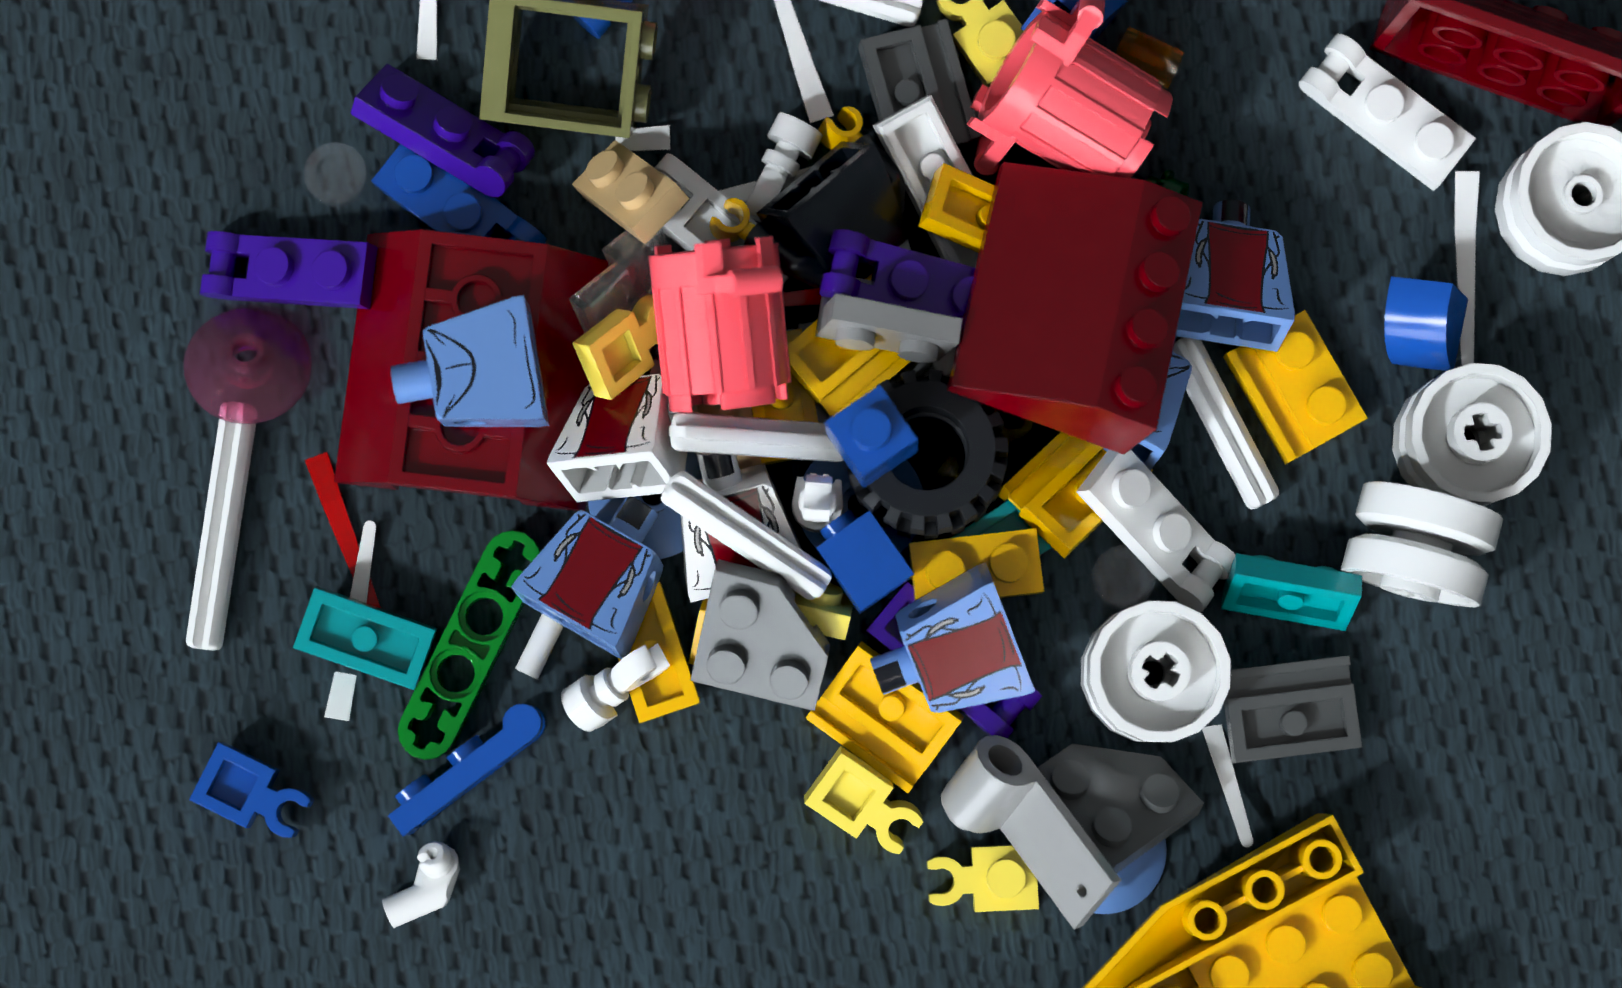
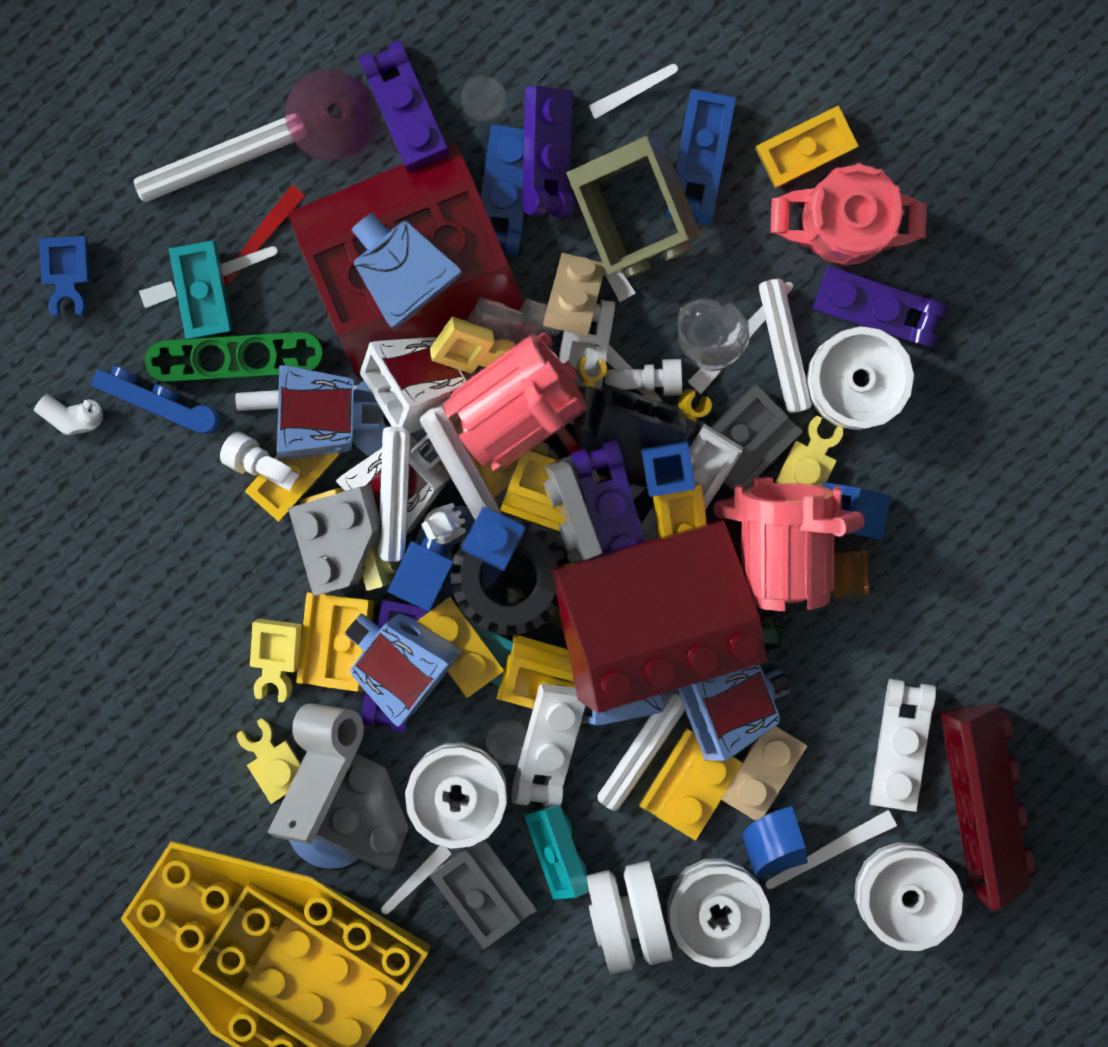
camera: 60 degrees right, 5 degrees up
(772, 58) = (712, 334): none -> clear hair
(904, 188) = (668, 469): none -> blue brick
(1331, 292) = (764, 772): none -> tan plate

